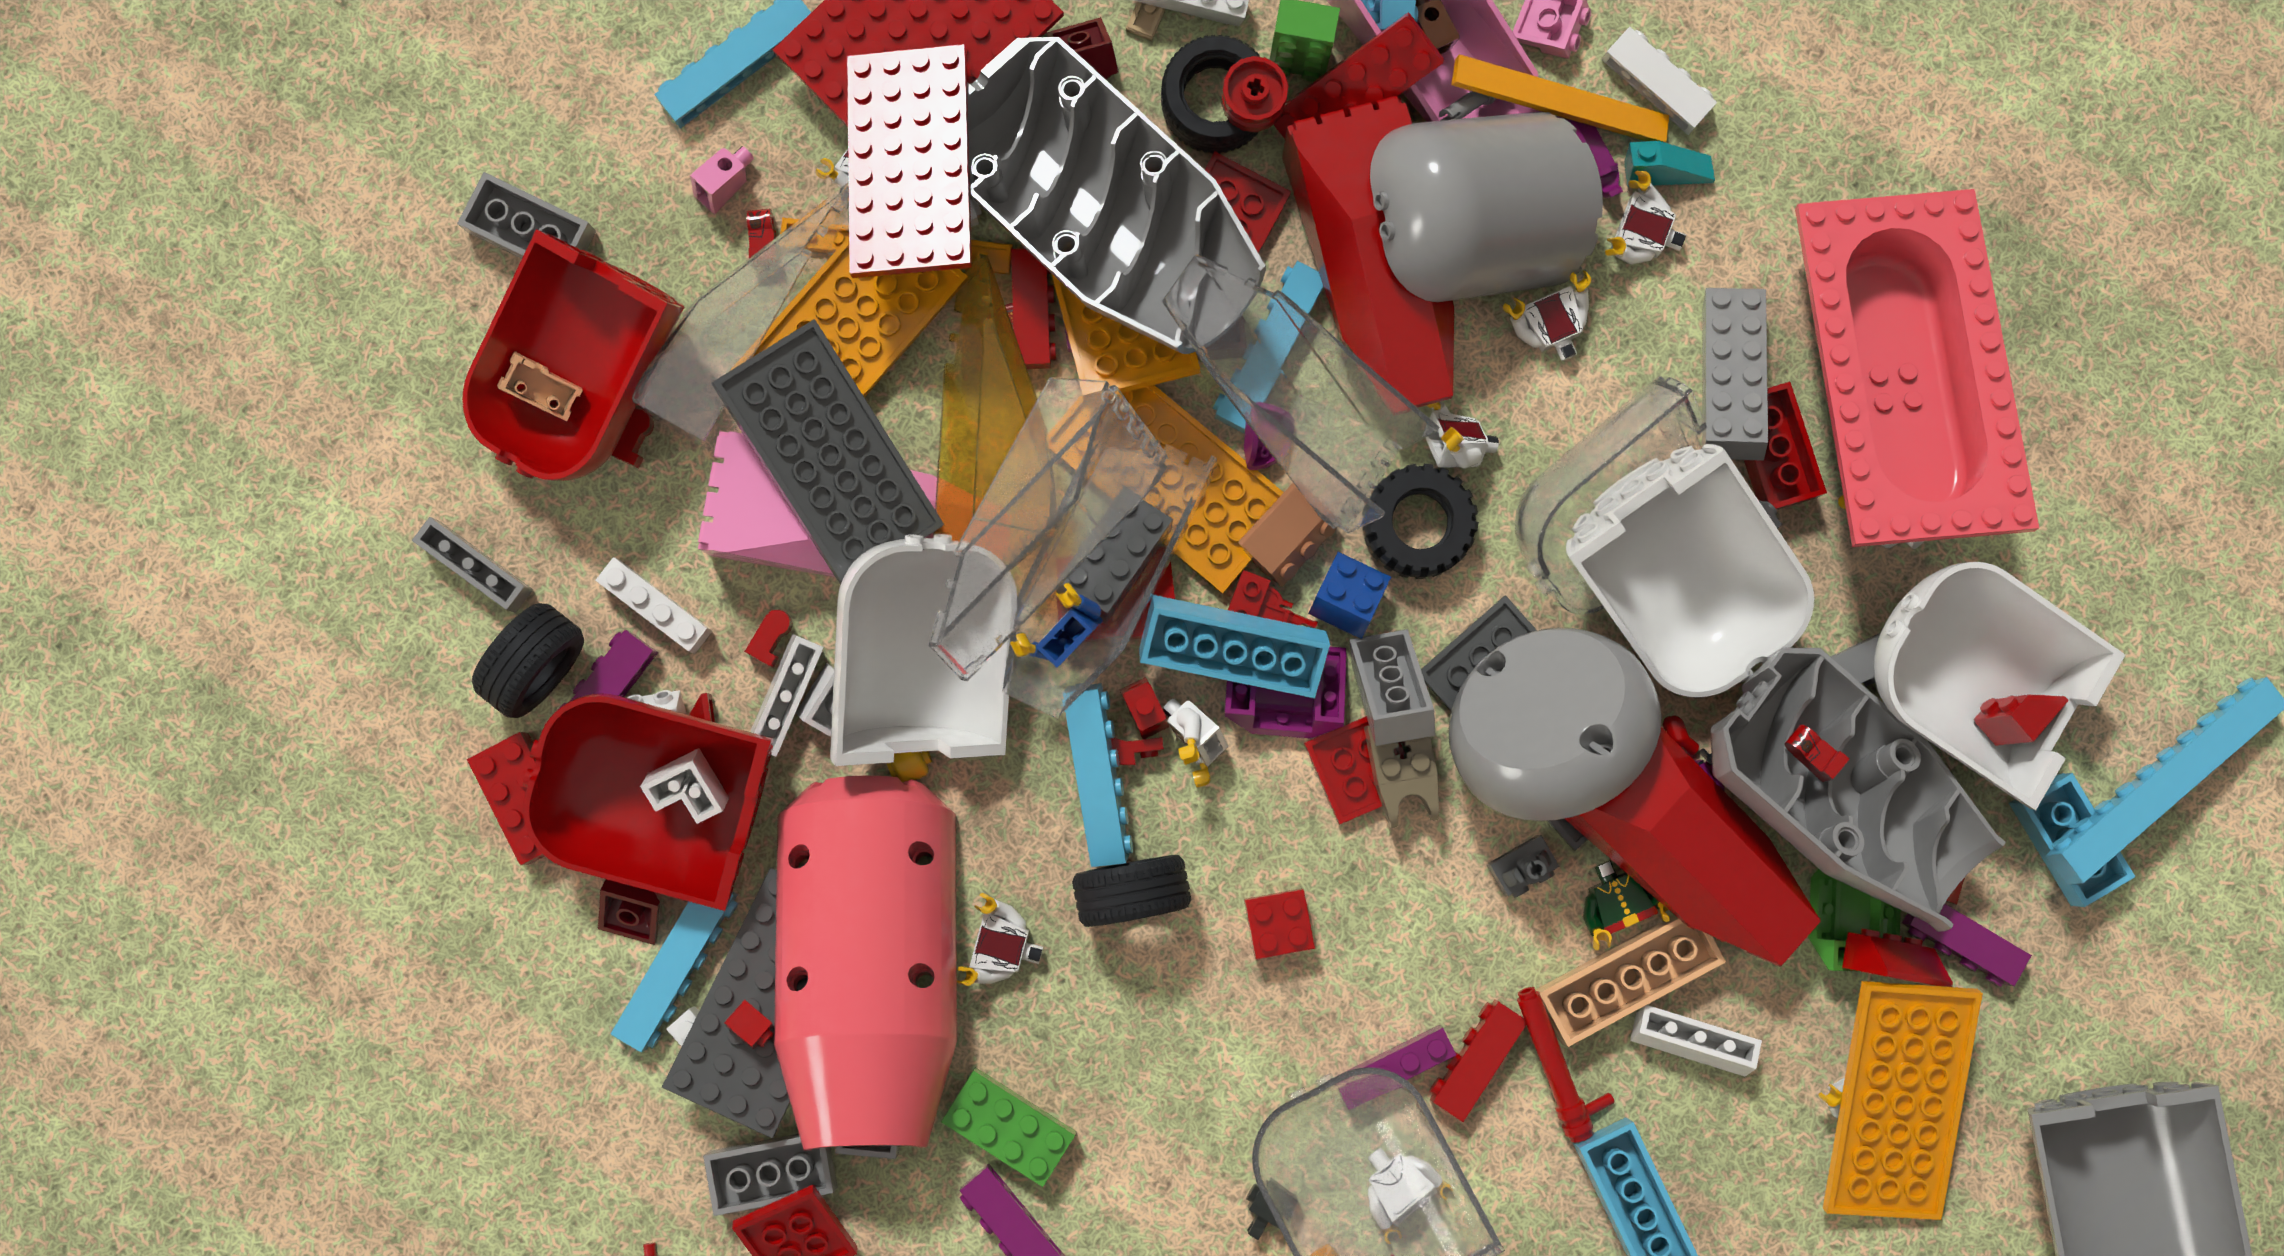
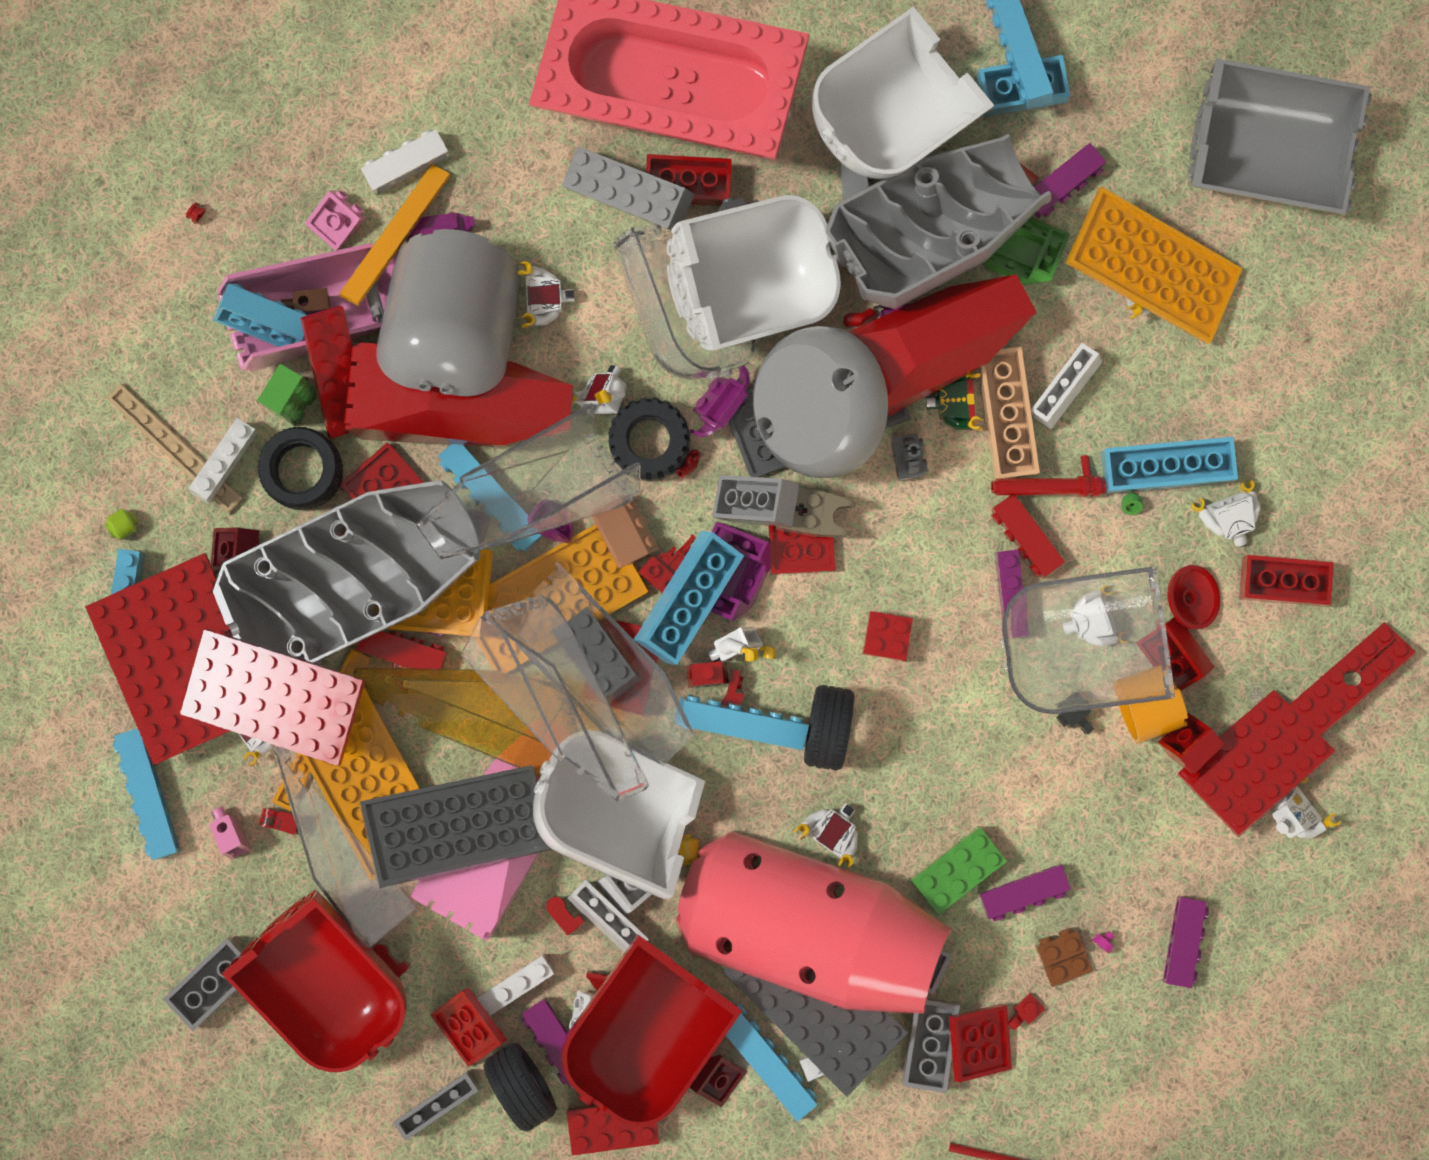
camera: 65 degrees left, 0 degrees up
(539, 386) = (329, 1013): light nougat piece -> none
(583, 568) = (468, 1027): none -> red plate
(689, 780) = (643, 1004): white brick -> none
(750, 1025) = (826, 1020): red brick -> none
(1067, 633) = (639, 706): blue torso -> none
(1259, 77) = (301, 440): red wheel -> none
(1349, 595) = (682, 505): blue brick -> none
(1408, 586) = (690, 463): none -> red arm
(1503, 596) = (721, 402): none -> magenta plate
(1572, 1183) = (1132, 504): none -> bright green tile
(1645, 225) = (502, 210): torso -> none
(1668, 164) = (465, 179): teal slope -> none
(1815, 753) = (904, 235): red leg -> none
(1894, 958) = (1059, 234): red slope -> none
(2018, 717) = (929, 91): red slope -> none

